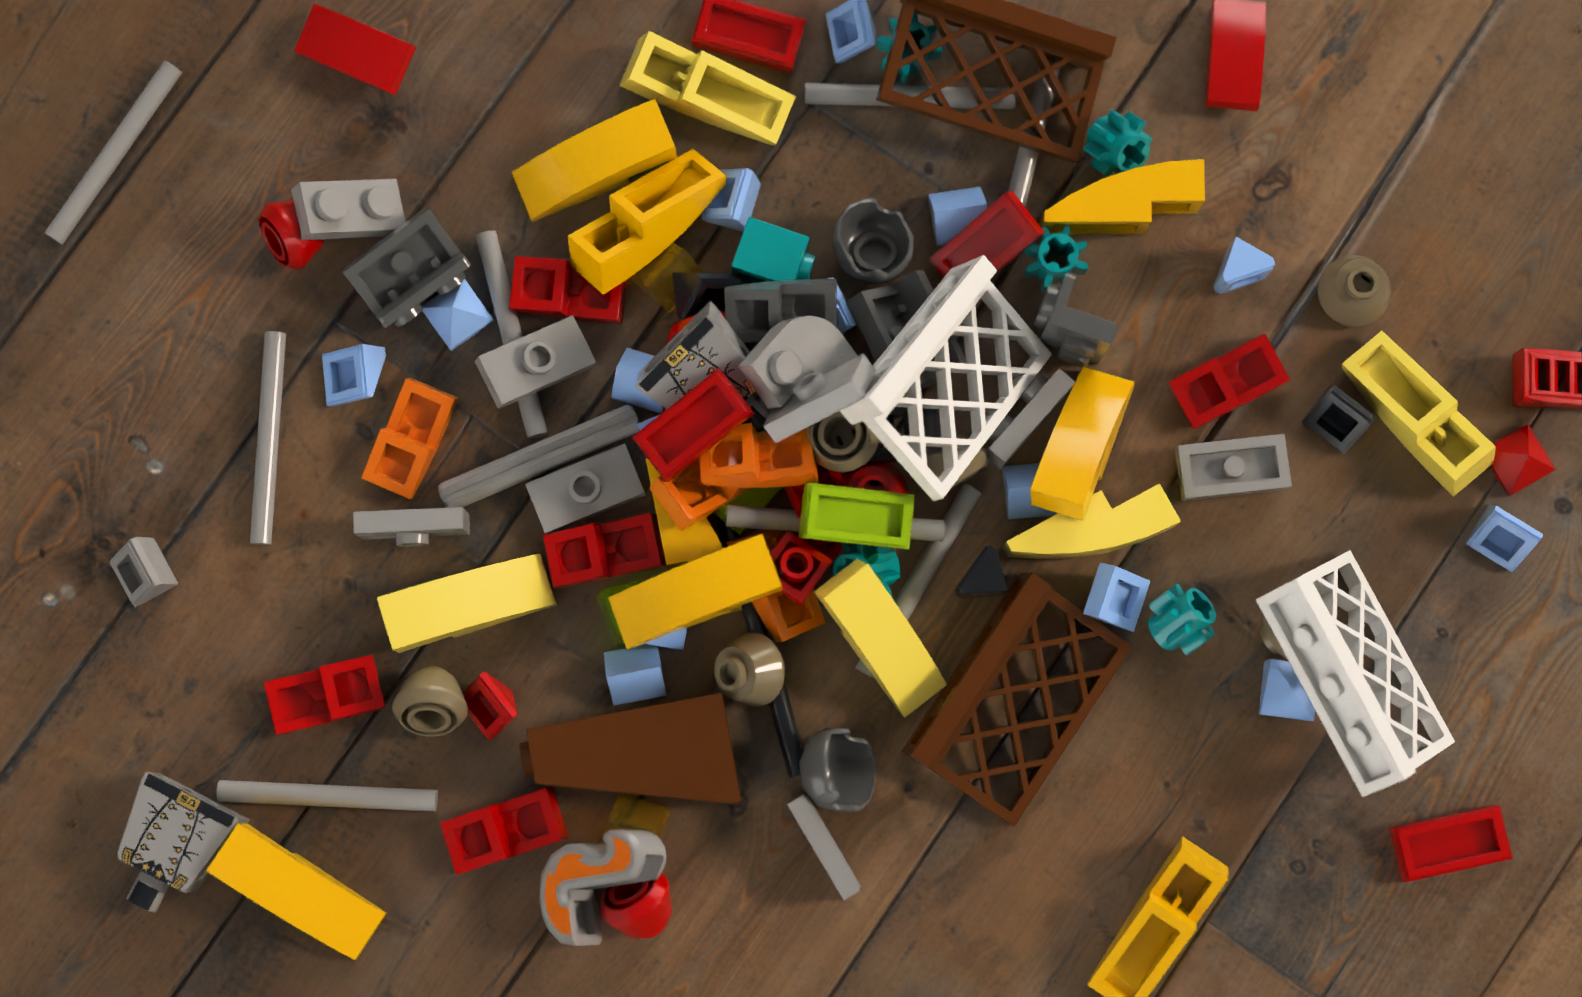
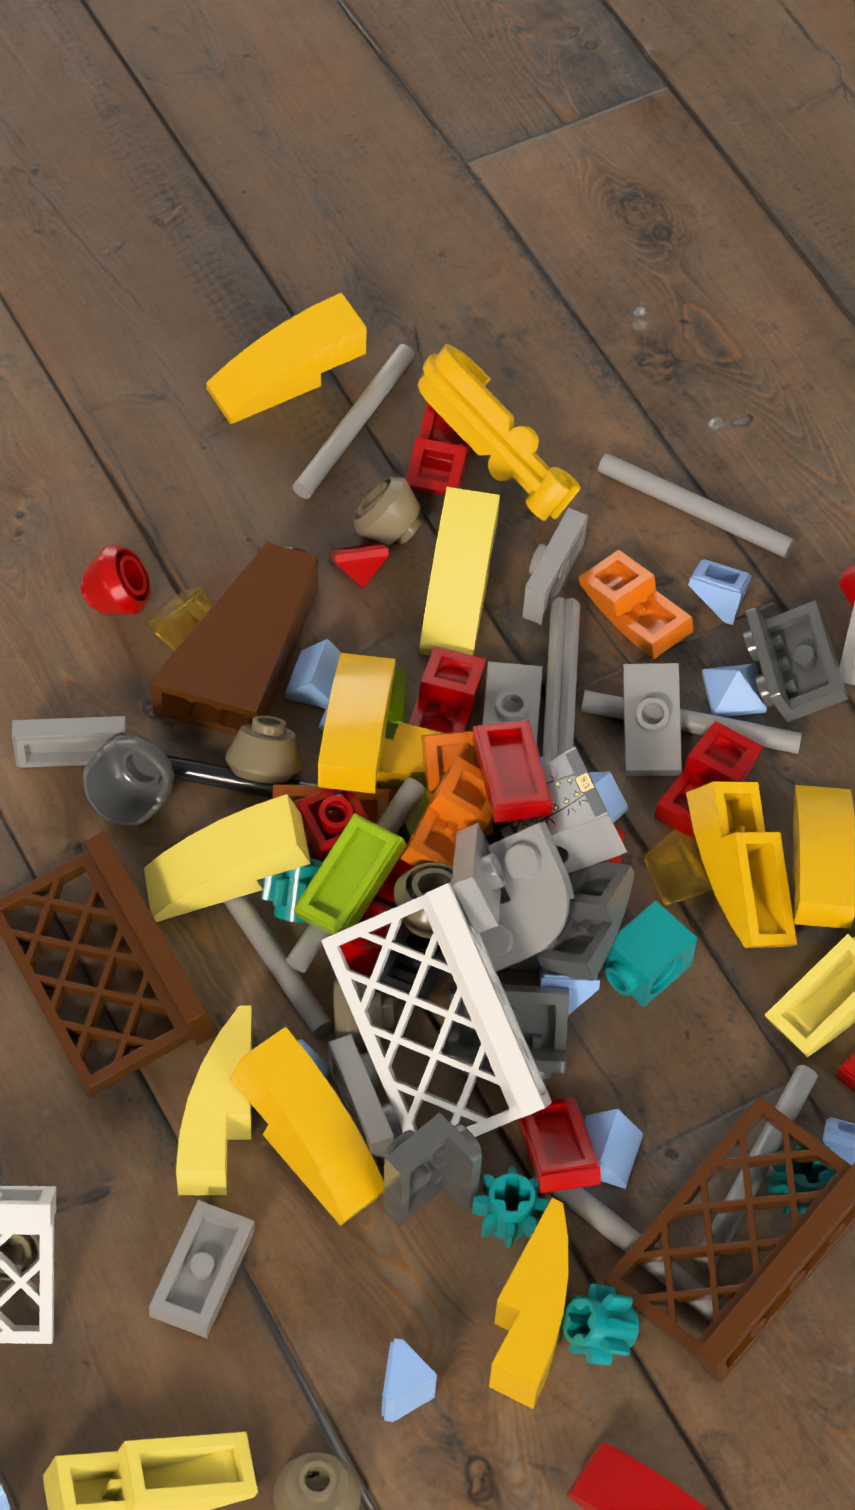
camera: 115 degrees right, 25 degrees down
(142, 570) = (627, 377): light grey slope -> none
(172, 838) = (391, 298): light grey torso -> none
(260, 718) = (459, 395): none -> yellow piece
(504, 830) = (243, 523): red slope -> none
(580, 868) = (163, 548): light grey animal -> none
(696, 290) = (651, 878): black slope -> none
(735, 200) = (726, 959): light blue slope -> none
(872, 242) = (617, 1043): dark grey hair -> none
(984, 577) = (230, 985): black slope -> none
(1116, 597) = (140, 1092): light blue plate -> none
(1182, 619) = (67, 1130): teal gear -> none
(1229, 381) = (291, 1317): red slope -> none
(1339, 418) = (194, 1406): black slope -> none

